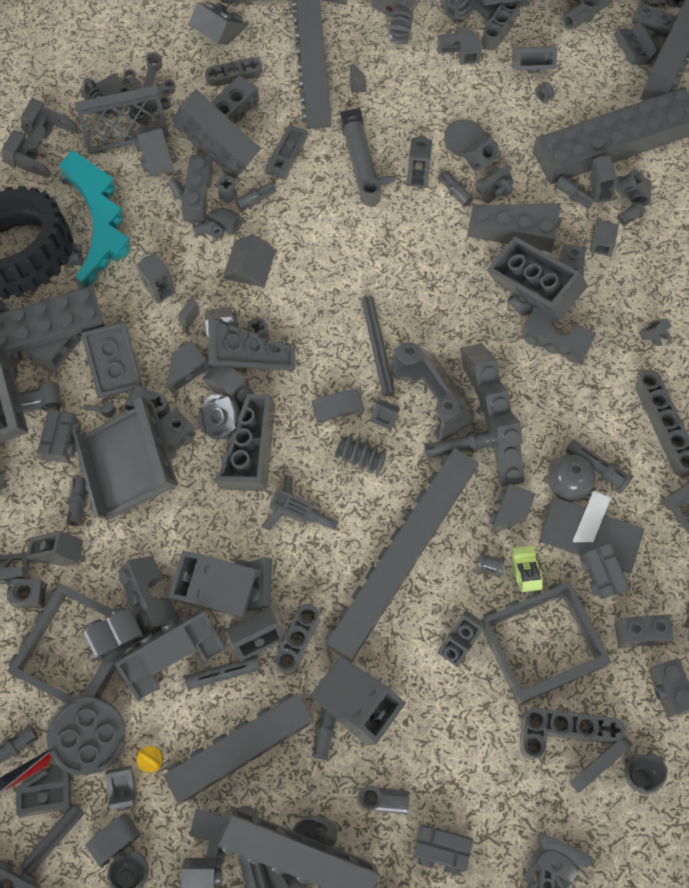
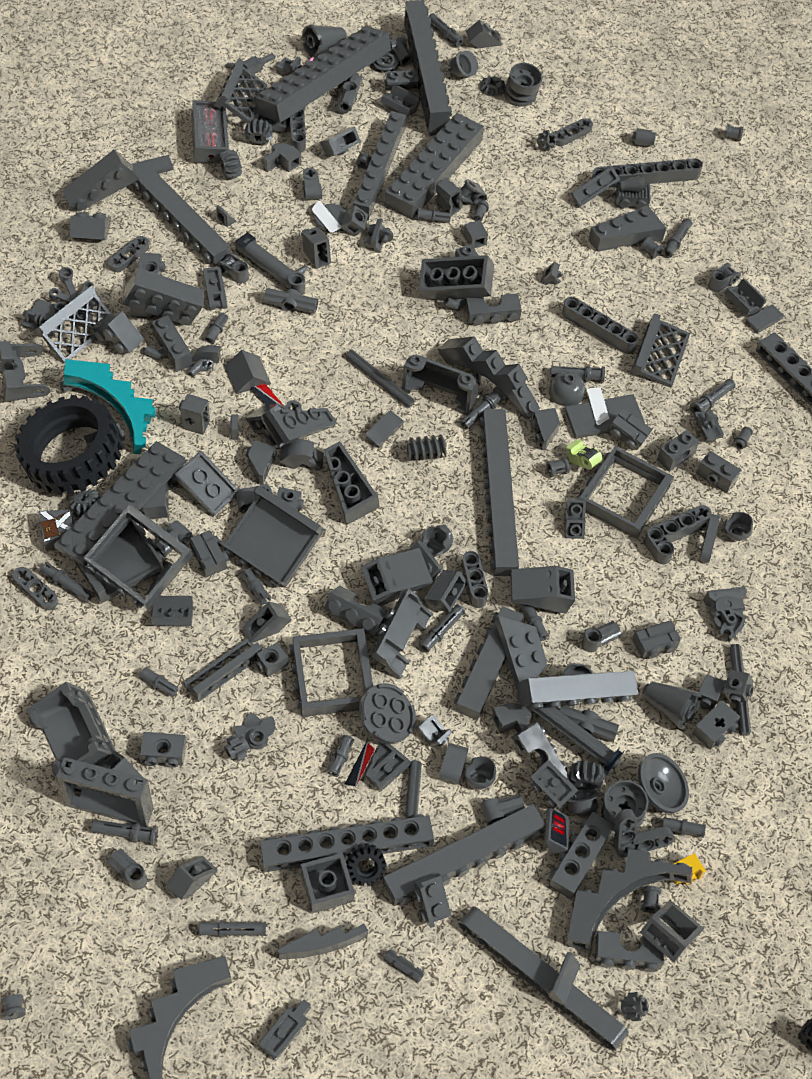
camera: 40 degrees left, 10 degrees down
(106, 410) = (227, 519): dark grey hand -> none
(113, 634) = (358, 639): dark grey brick -> none
(149, 759) = (436, 706): yellow tile -> none
(218, 416) = (312, 477): dark grey tile -> none
(226, 187) = (193, 333): dark grey bush -> none
(249, 301) = (267, 395): none -> sticker
(279, 761) = (521, 649): none -> dark grey wing
(289, 569) = (437, 539): none -> dark grey hair
(294, 507) = (407, 506): dark grey piece -> none
(322, 141) = (234, 268): none -> dark grey piece
(351, 207) = (290, 300): none -> dark grey piece
(385, 414) = (421, 416): dark grey tile -> none
(455, 188) = (352, 253): dark grey axle -> none
(457, 138) = (326, 217): none -> white sticker
(468, 90) = (311, 184): none -> dark grey piece
(529, 222) = (408, 254): dark grey wedge -> none
(558, 104) = (380, 162): none -> dark grey brick

